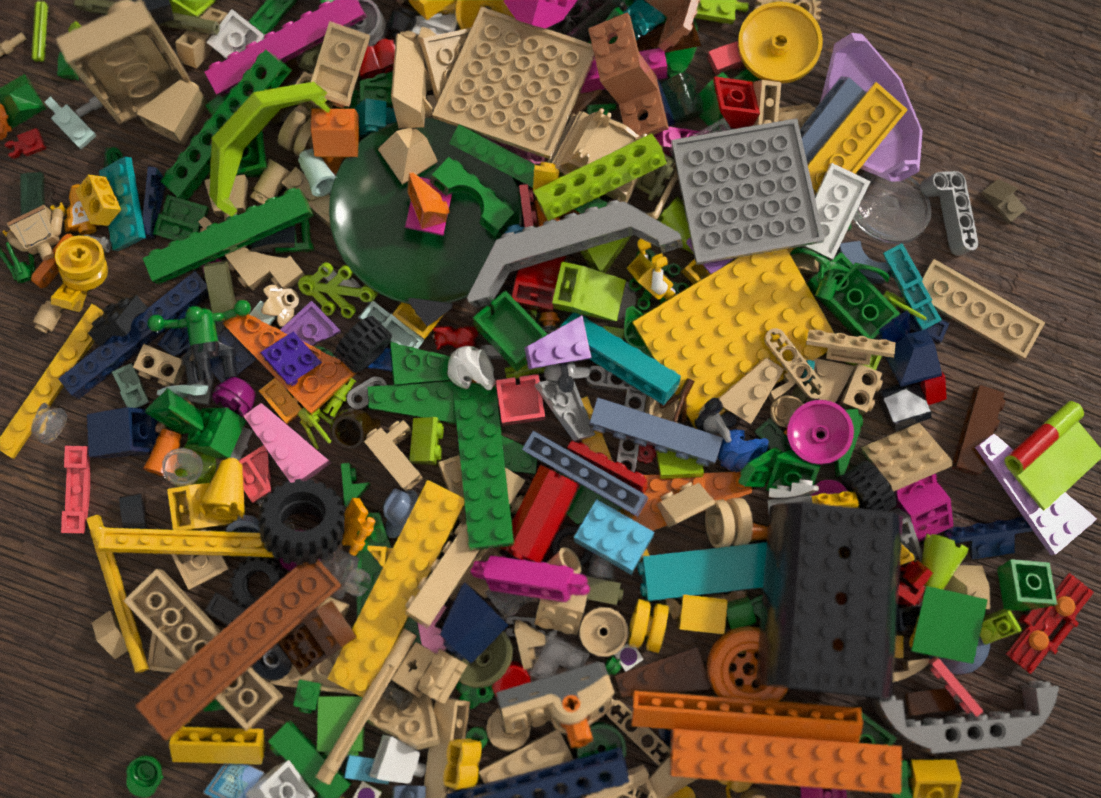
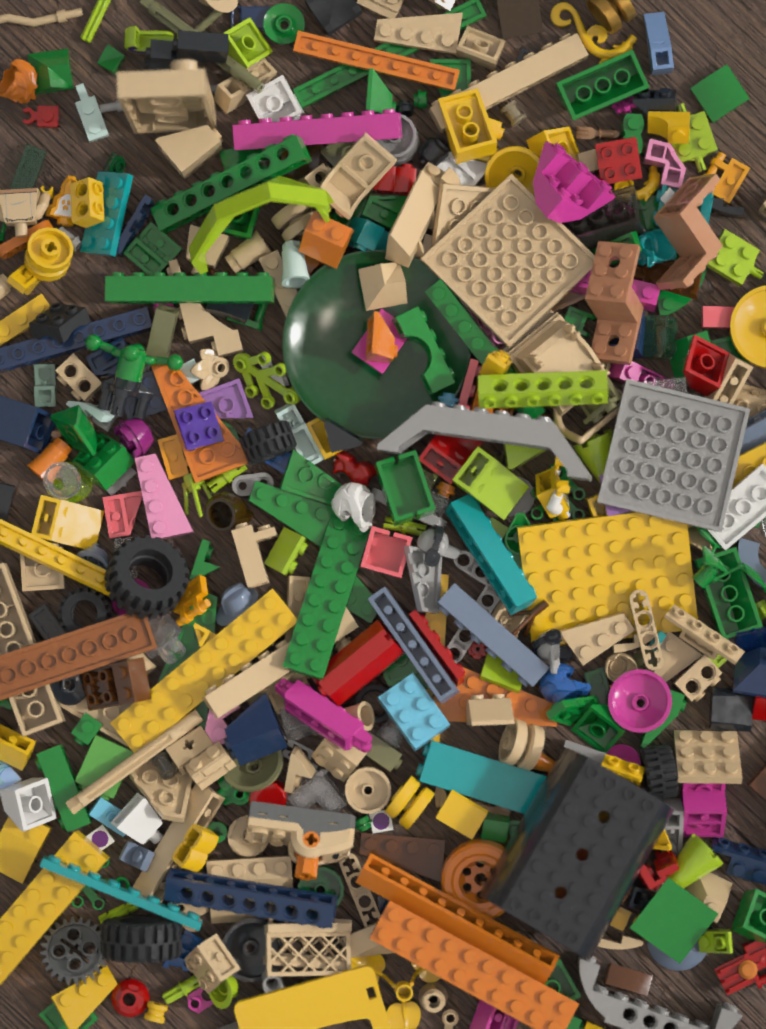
camera: 30 degrees right, 5 degrees up
(226, 492) = (91, 520): yellow cone -> none
(561, 346) = (442, 523): wing -> none
(799, 489) = (598, 743): white slope -> none
(954, 687) = (646, 955): coral wing -> none

